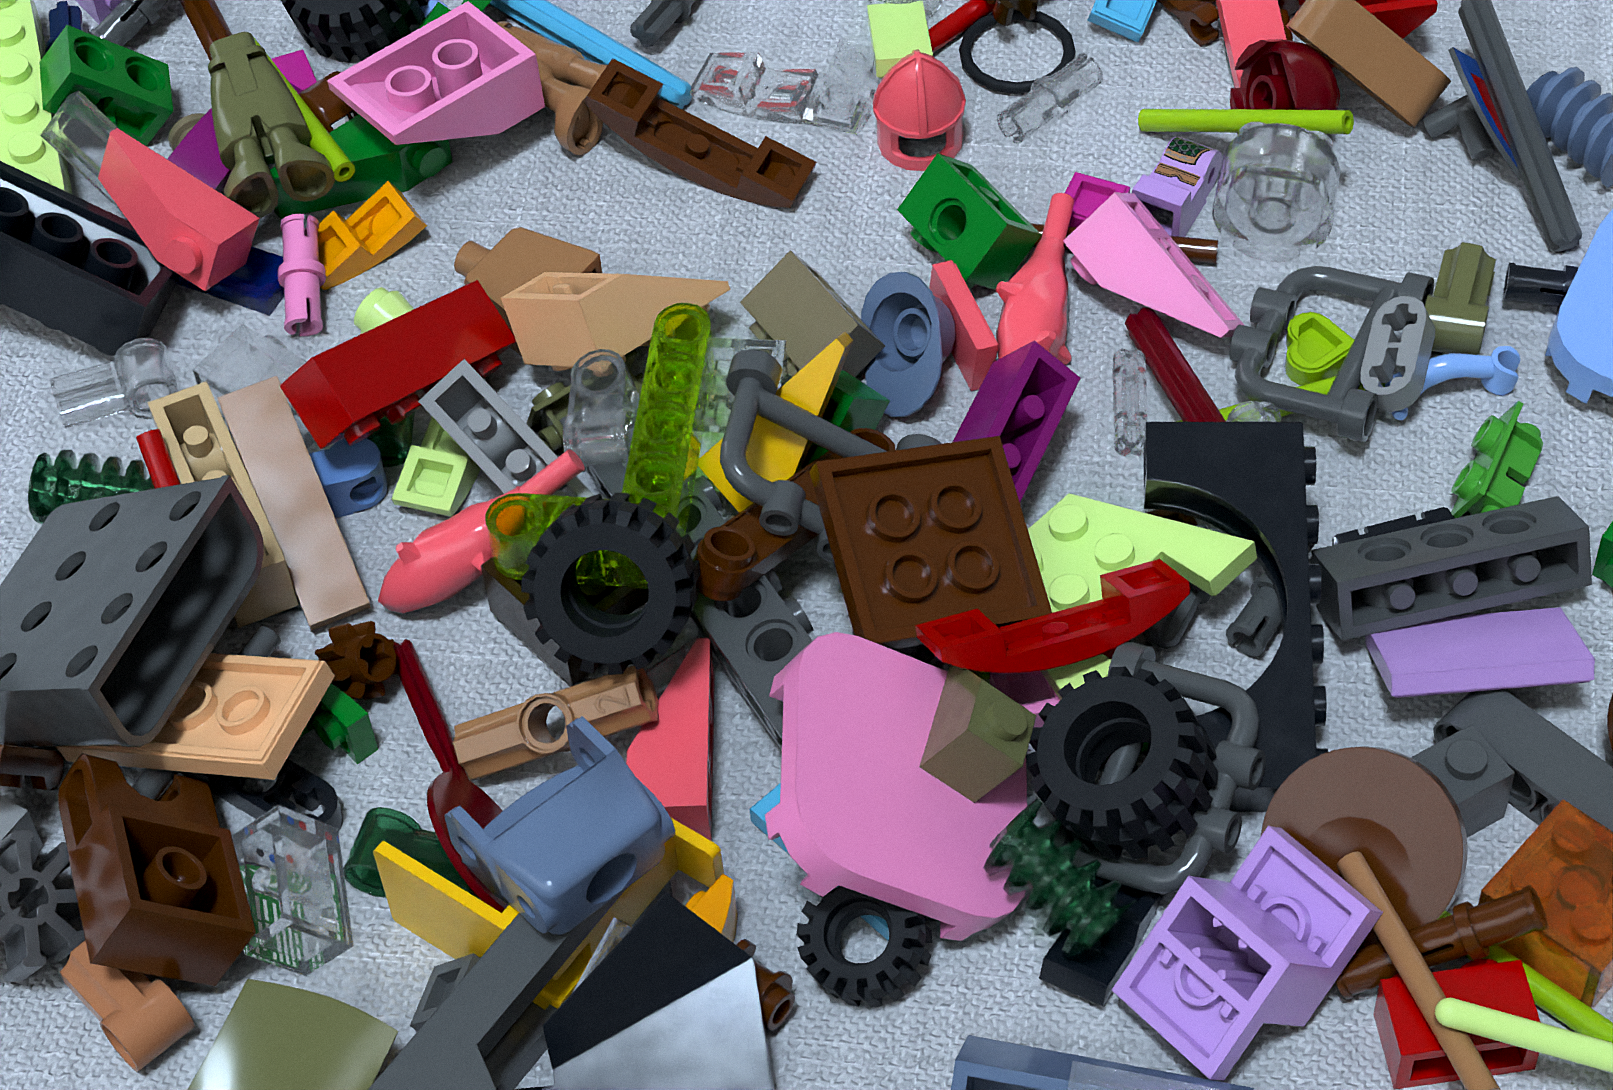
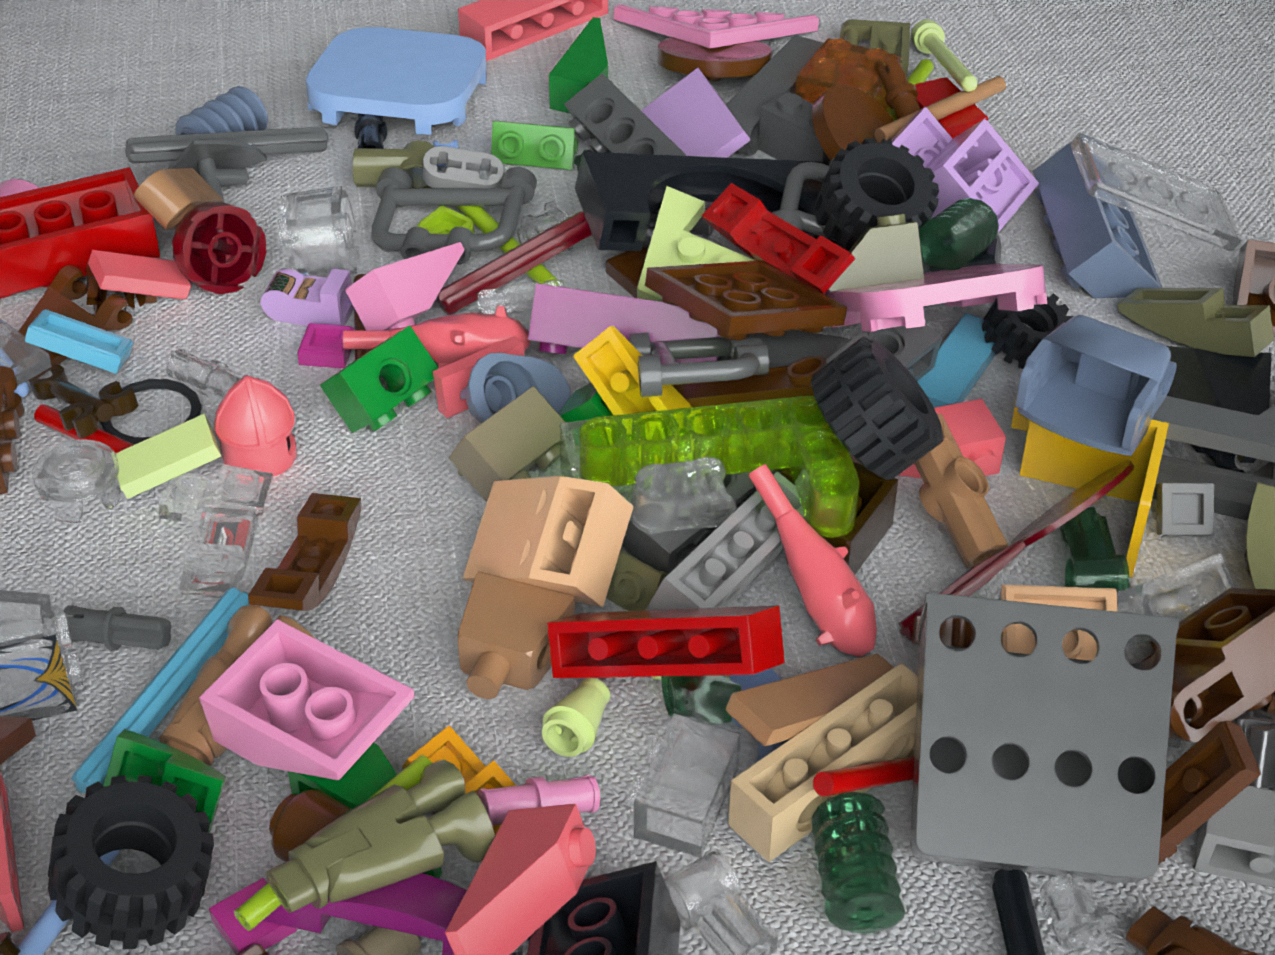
camera: 110 degrees left, 10 degrees down
(1233, 119) = (252, 255): lime piece -> none

